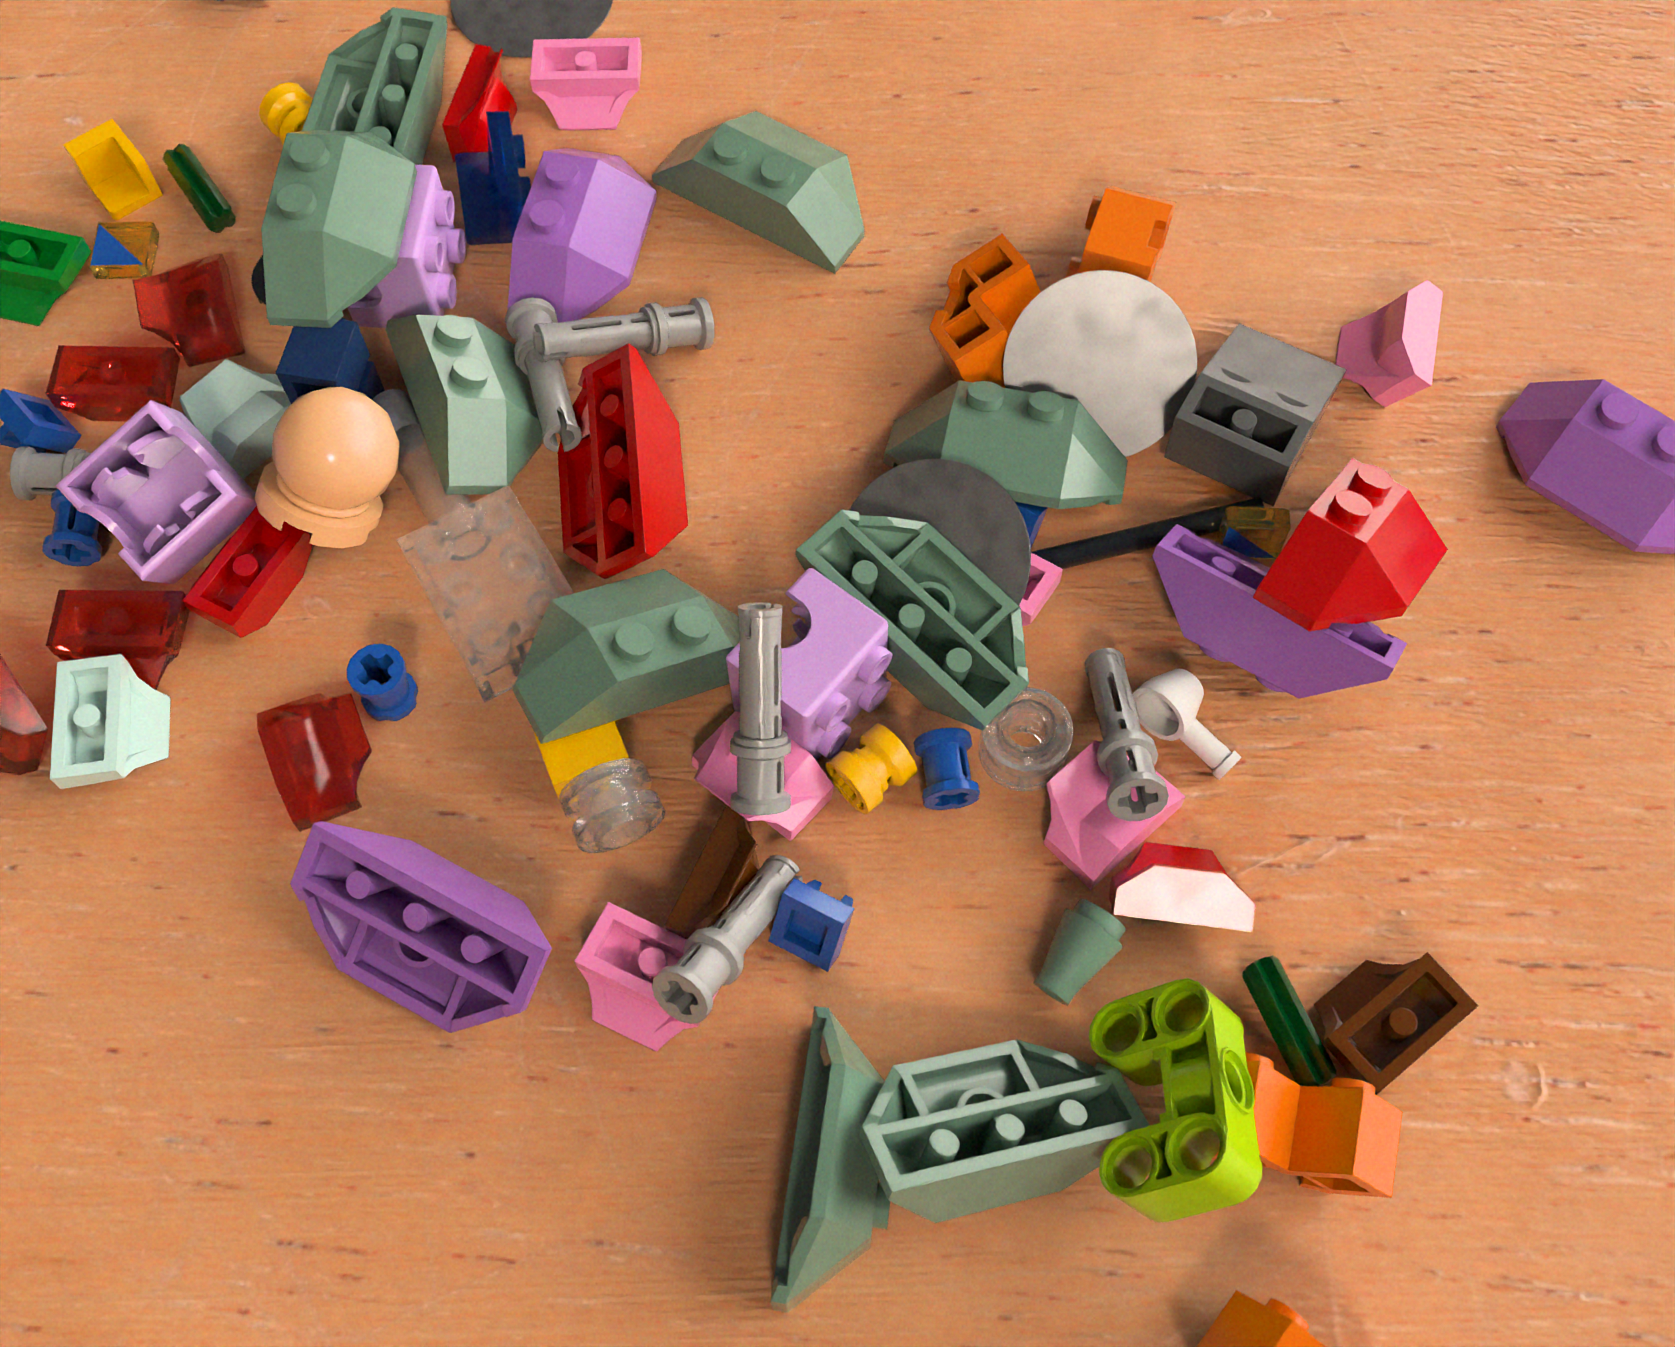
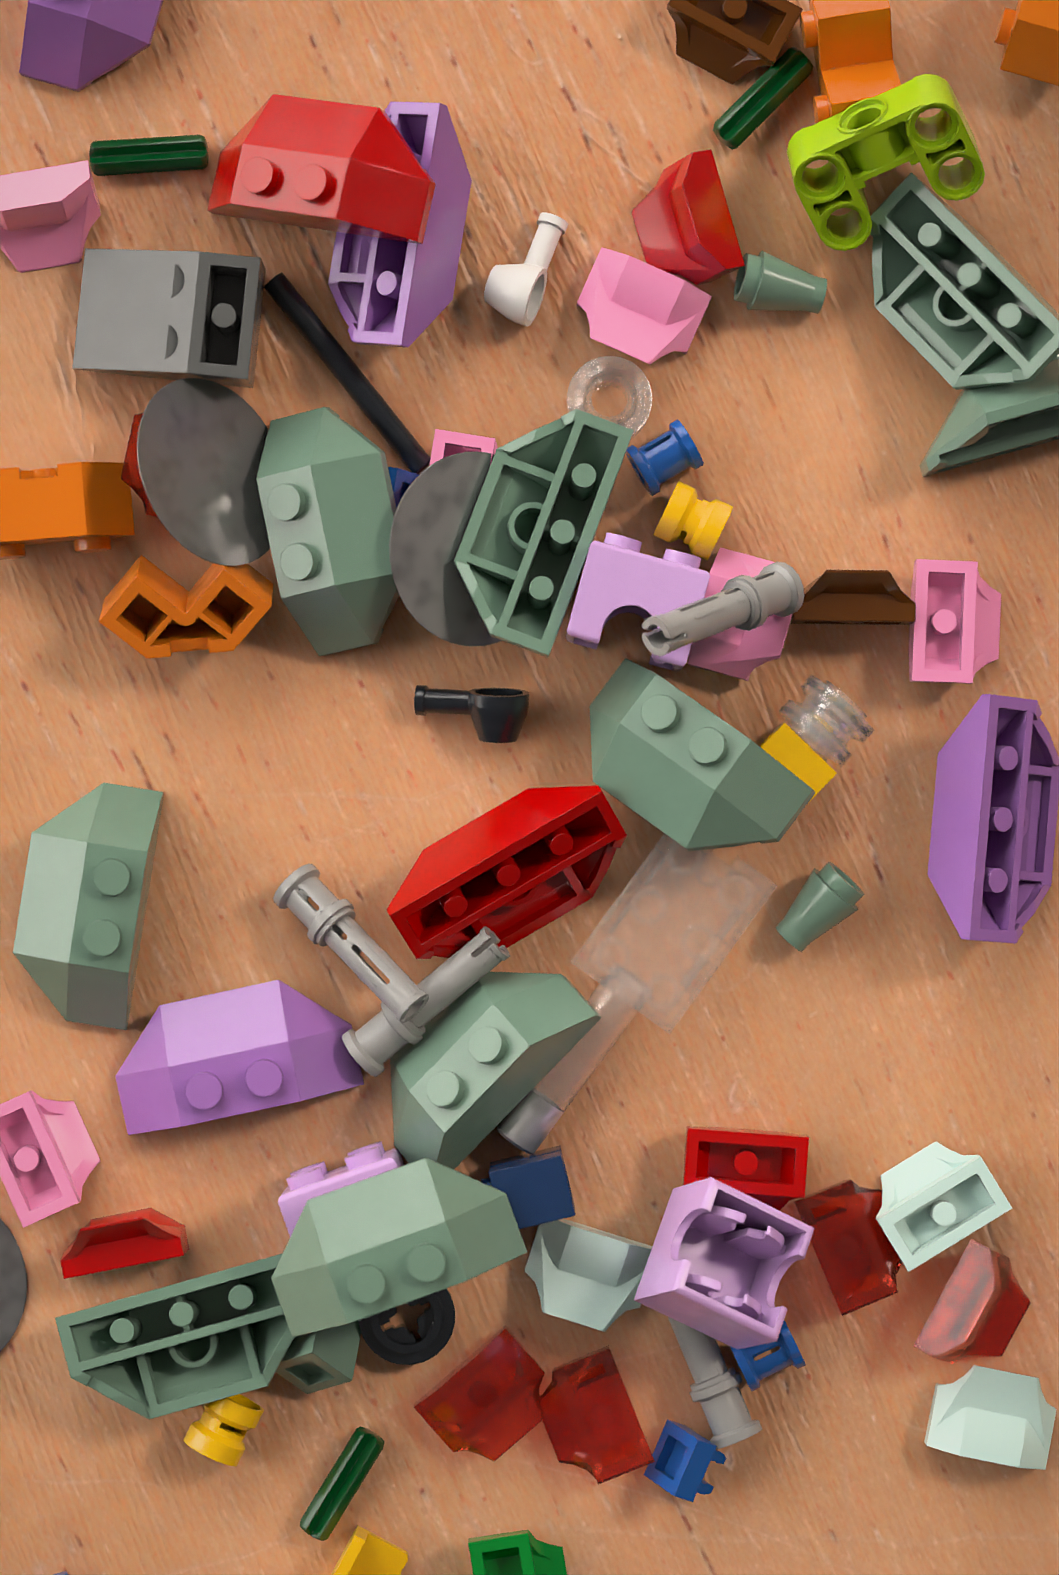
camera: 110 degrees left, 25 degrees up
(124, 250) = (446, 1513): clear yellow tile -> none
(315, 756) = (881, 1007): clear red slope -> none
(329, 467) = (633, 1129): light nougat tile -> none
(377, 665) = (802, 998): blue bush -> none
(443, 740) = (820, 905): none -> sand green cone
(491, 185) = (225, 1173): clear blue bracket -> none
(717, 952) = (924, 565): light grey pin -> none
(777, 530) = (494, 711): none -> black bar
(811, 923) = (851, 510): blue tile -> none
(1110, 683) = (596, 297): light grey pin -> none
(1254, 530) = (312, 276): clear yellow tile -> none
(1419, 446) = (148, 155): none -> dark green axle

